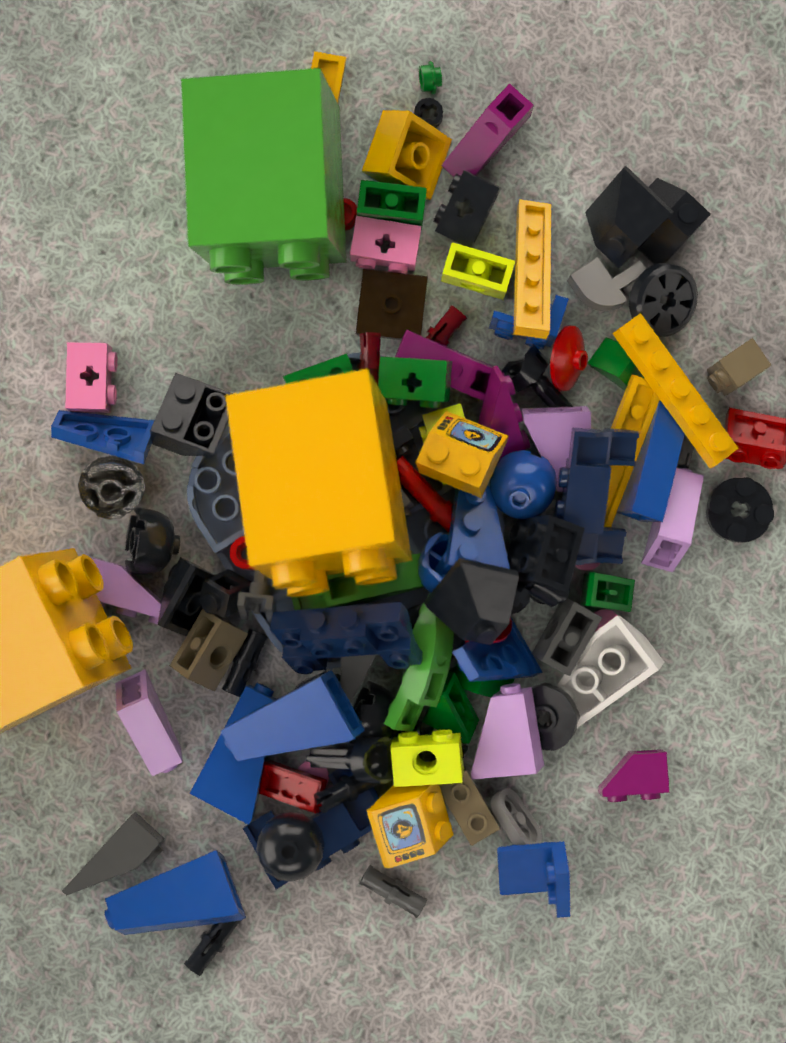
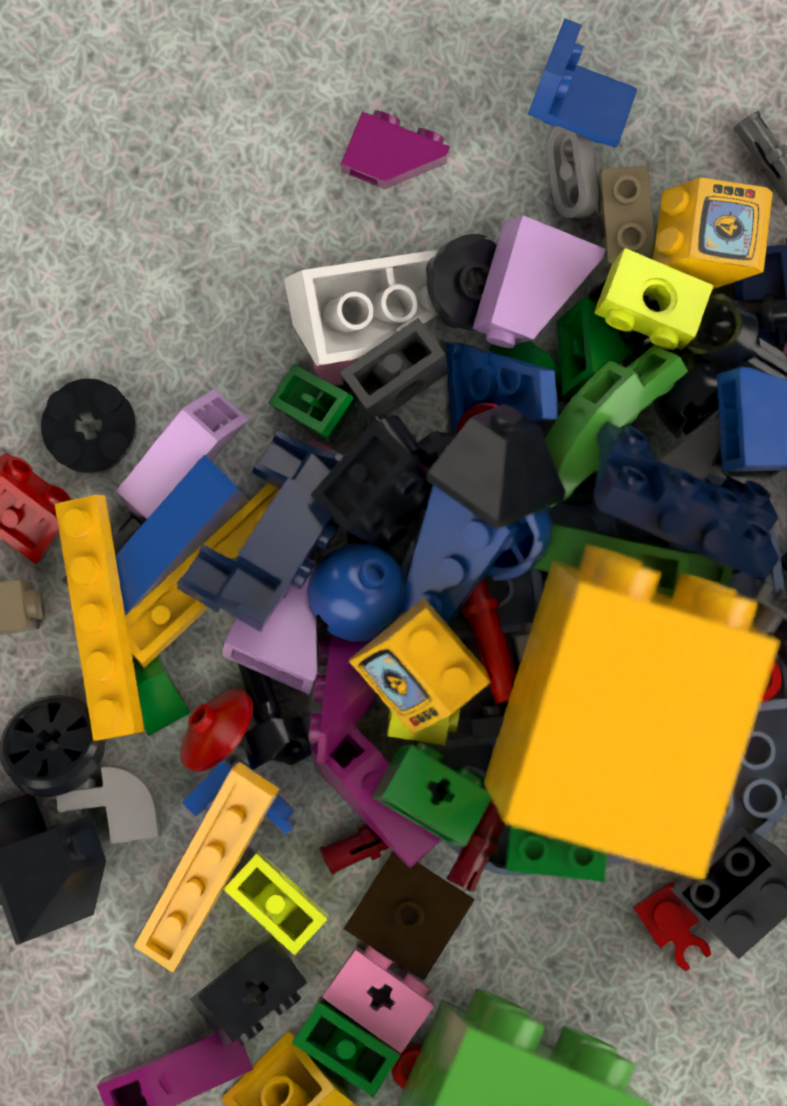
camera: 150 degrees left, 0 degrees up
(228, 377) = (669, 920): none -> red plate

